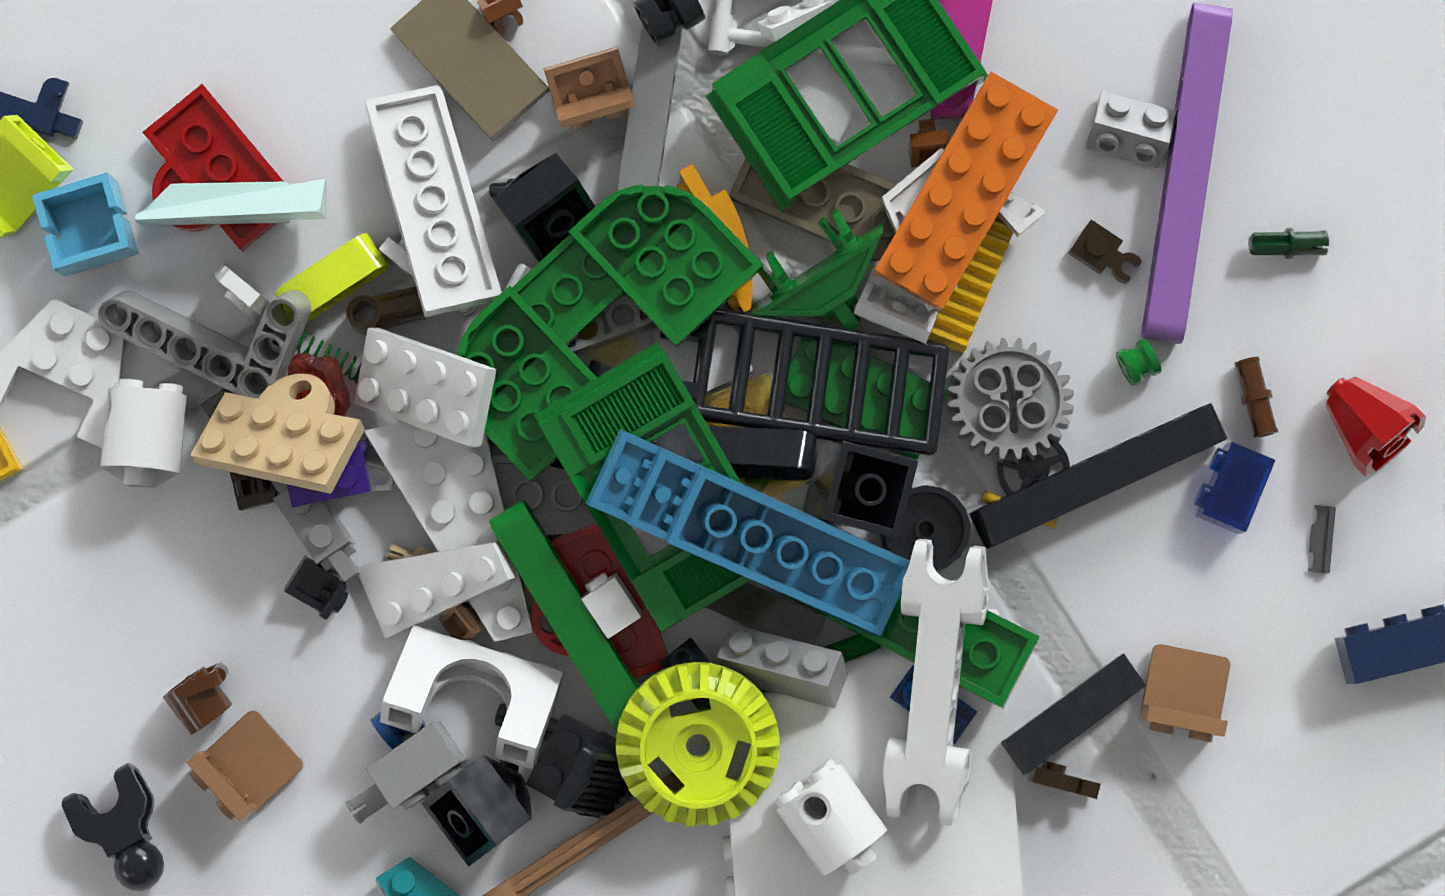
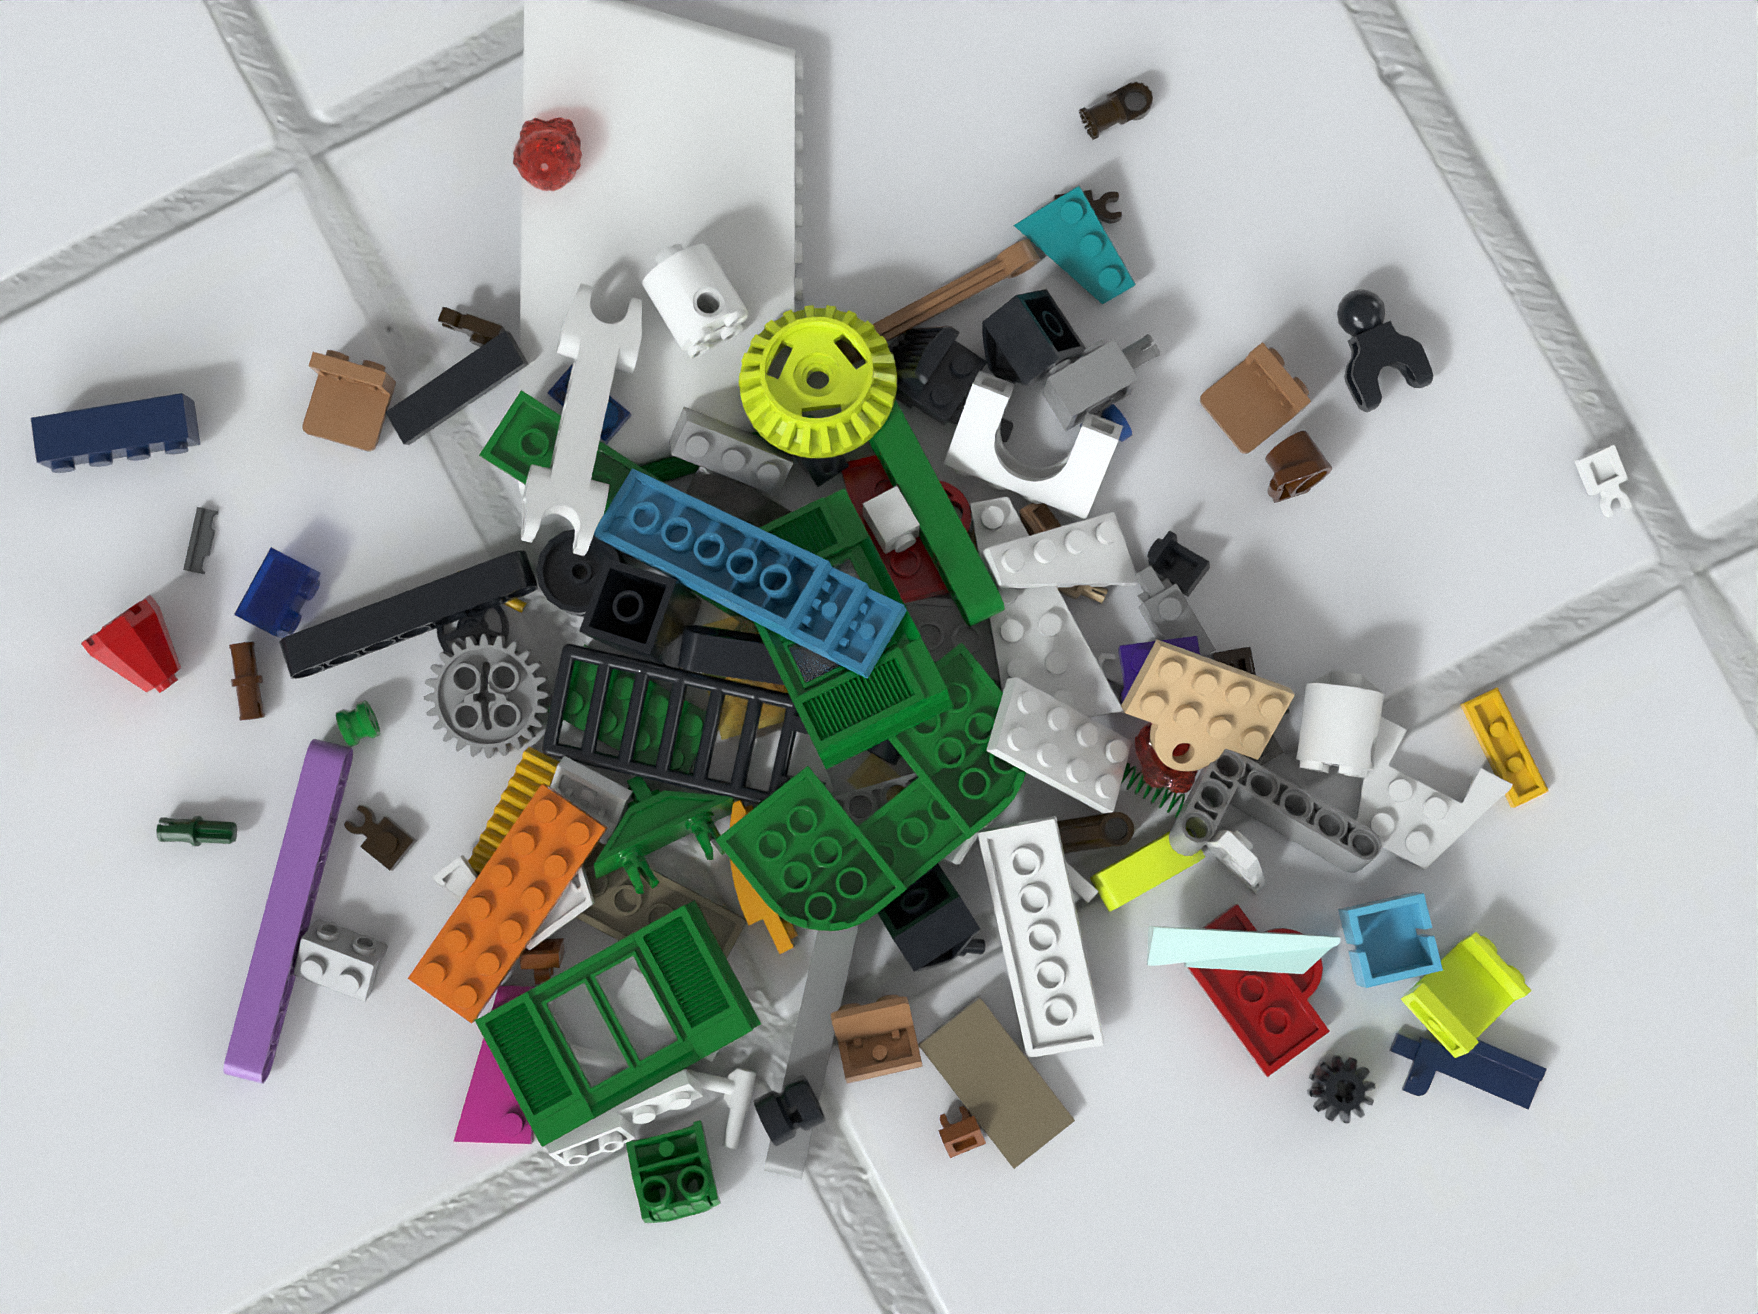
camera: 175 degrees left, 0 degrees up
(115, 84) = (1327, 1089): none -> black gear

